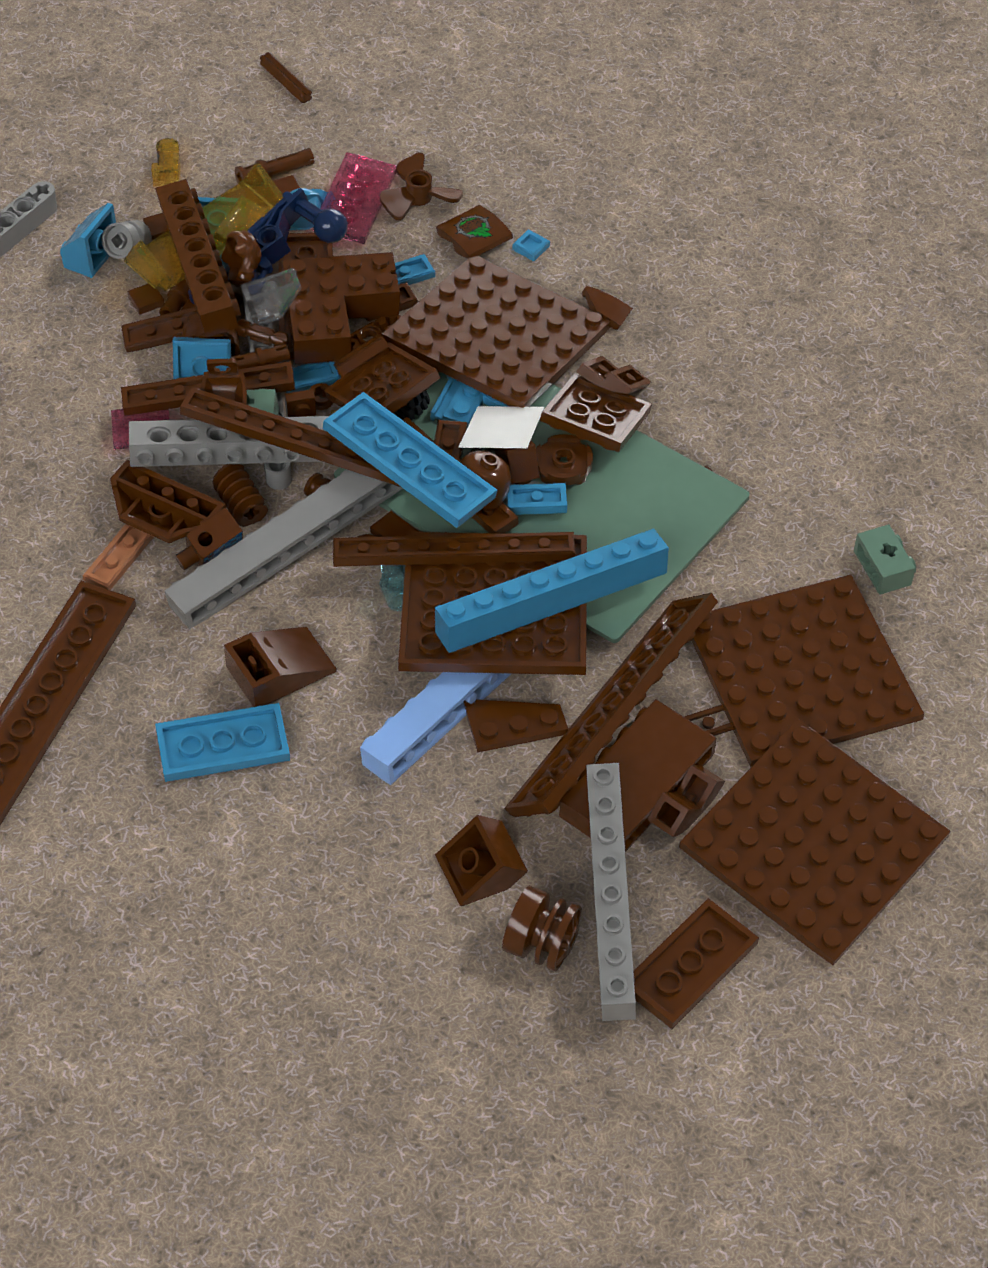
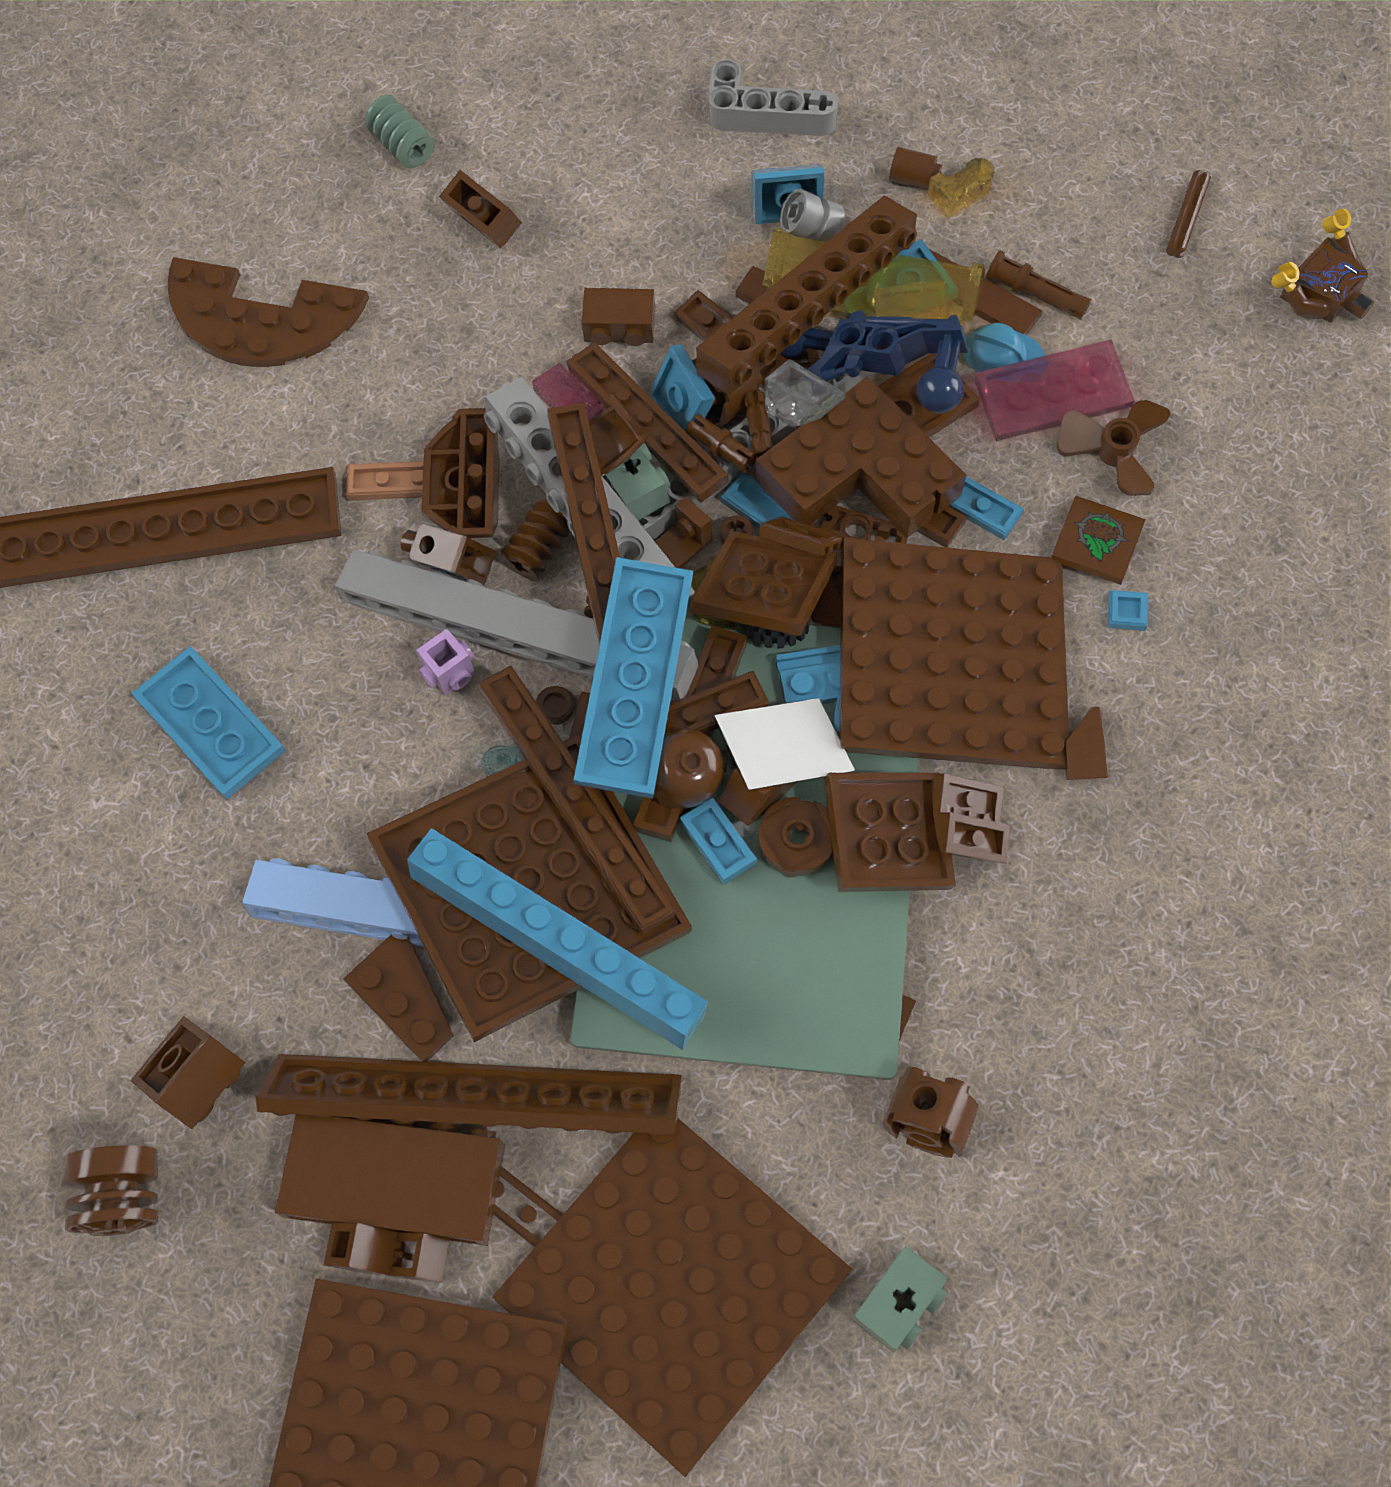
camera: 65 degrees right, 15 degrees up
(103, 374) = (618, 315): none -> reddish brown brick
(131, 177) = (913, 168): none -> reddish brown brick
(242, 256) = (828, 335): reddish brown hair -> none
(276, 663) = (333, 712): reddish brown slope -> none
(293, 582) = (446, 662): none -> lavender brick
(390, 42) = (1328, 277): none -> reddish brown torso
(611, 893) = (183, 1240): light grey brick -> none
(691, 962) = (168, 1379): reddish brown plate -> none
(786, 482) = (931, 1113): none -> reddish brown brick

